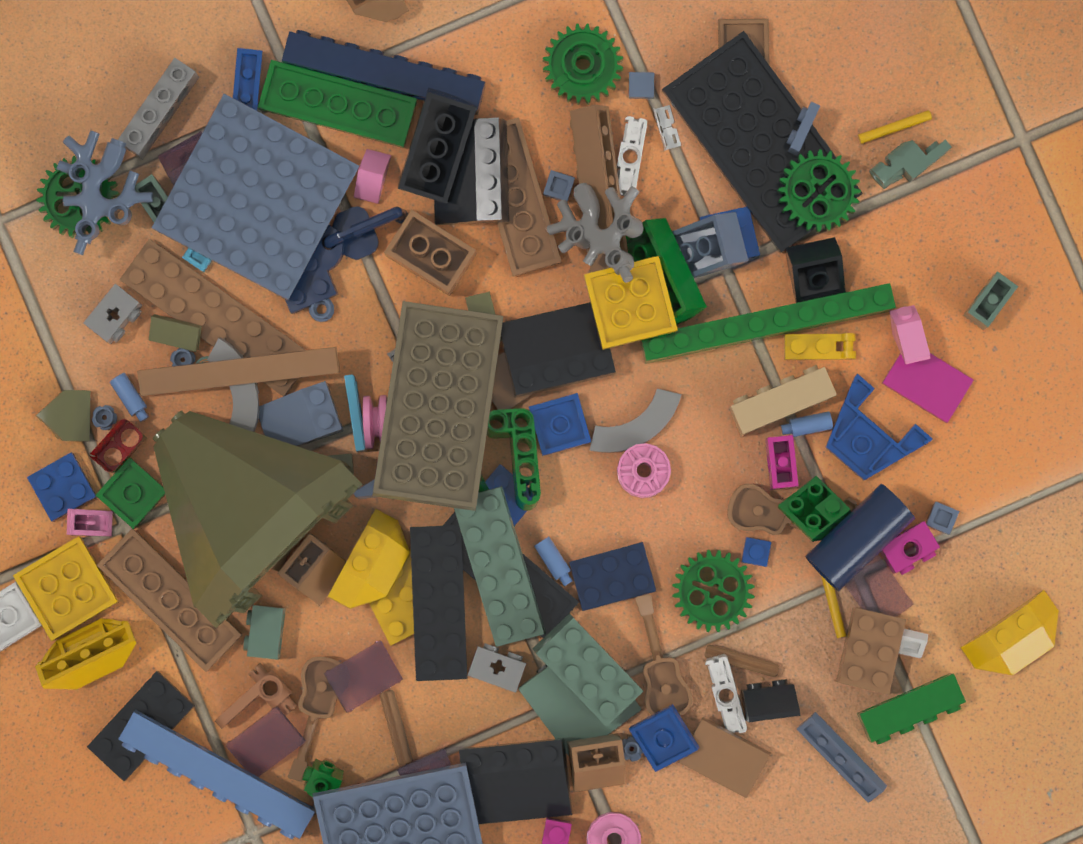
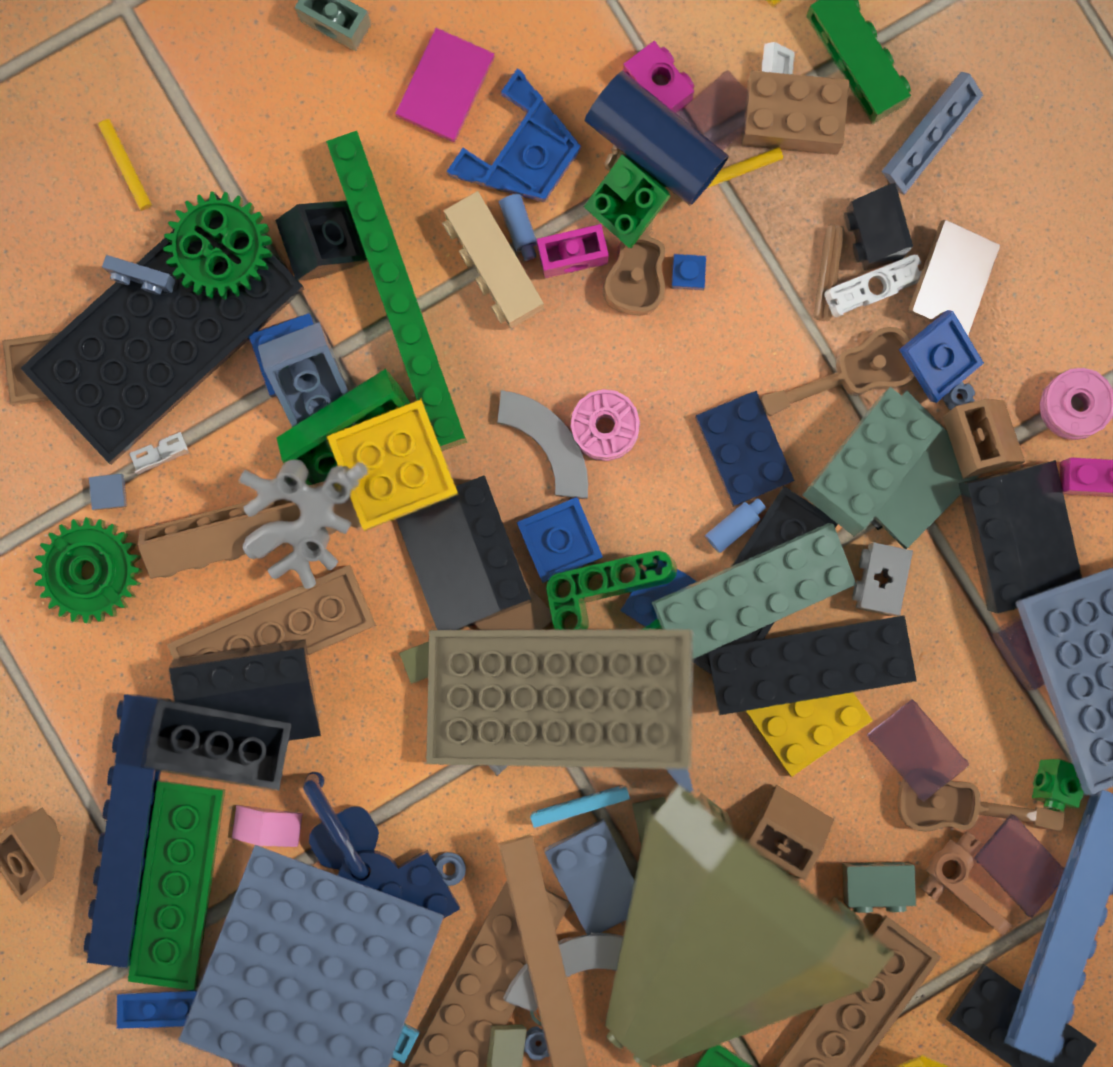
camera: 95 degrees left, 0 degrees up
(372, 563) = (772, 758): yellow wedge -> none
(373, 419) = (586, 781): bright pink wheel -> none
(396, 727) = (975, 699): medium nougat axle -> none
(430, 252) = (358, 736): medium nougat brick -> none
(558, 186) = (251, 581): sand blue plate -> none
(632, 140) = (180, 493): white piece -> none
(721, 569) = (773, 326): green gear -> none
(818, 346) = (418, 225): yellow plate -> none
(907, 161) = (168, 141): sand green plate -> none
(909, 334) = (389, 110): bright pink slope -> none
(942, 518) = (615, 45): sand blue plate -> none

